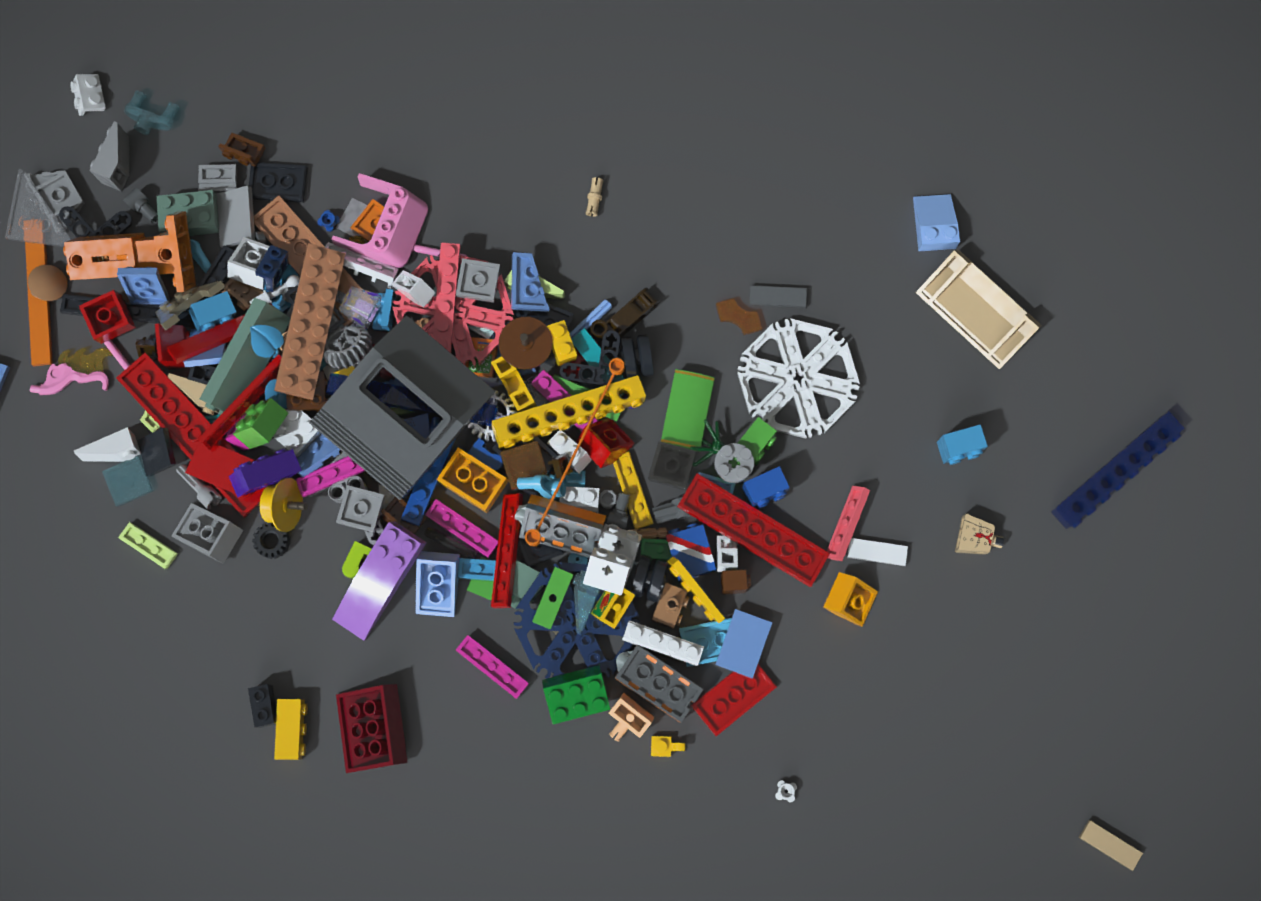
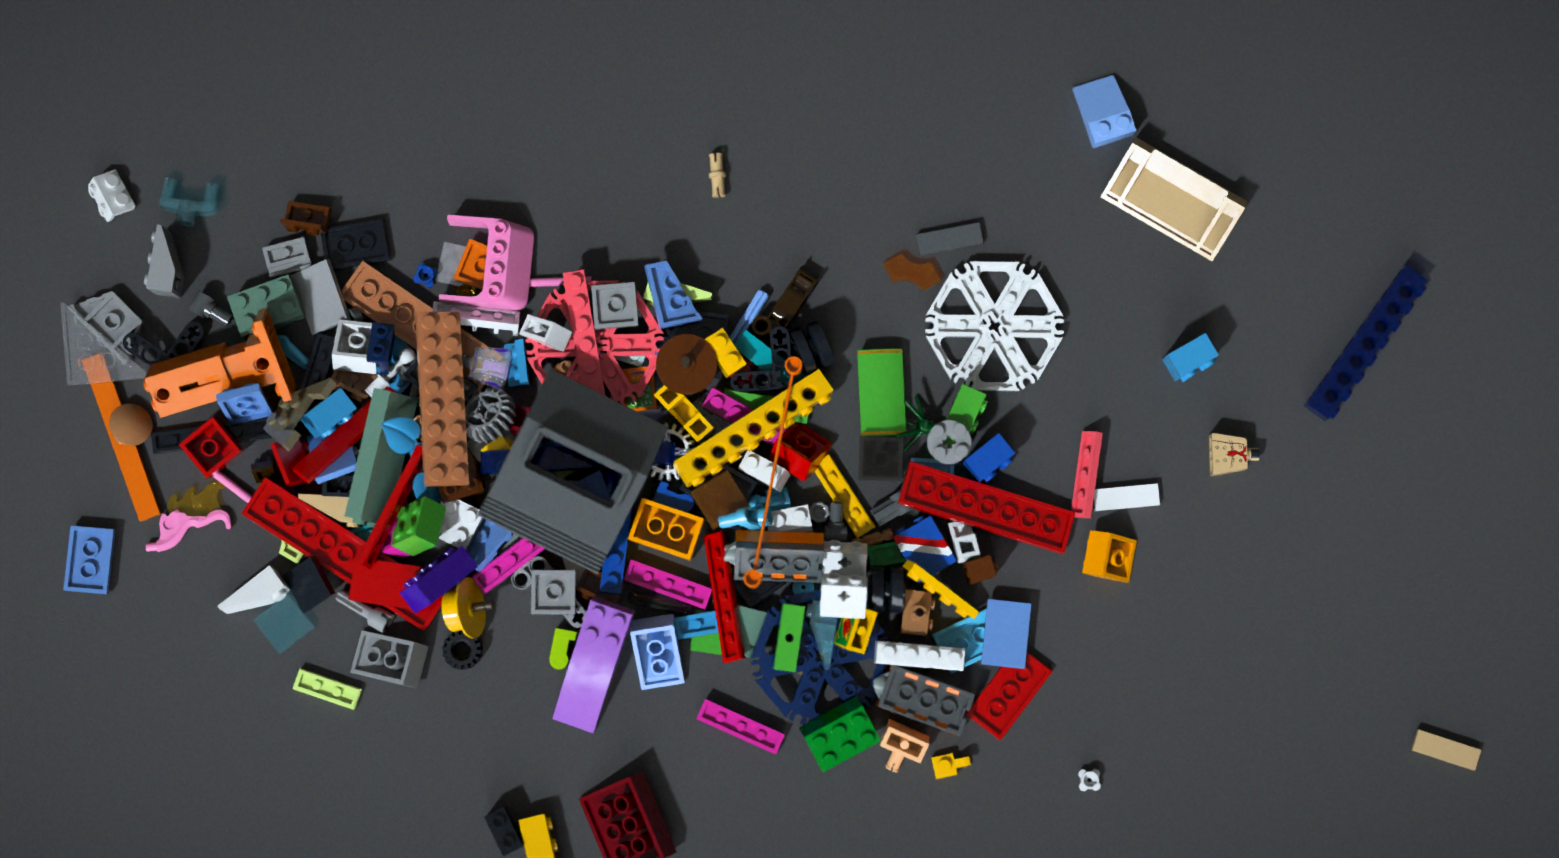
camera: 15 degrees left, 5 degrees up
(560, 464) = (760, 490): dark brown tile -> none

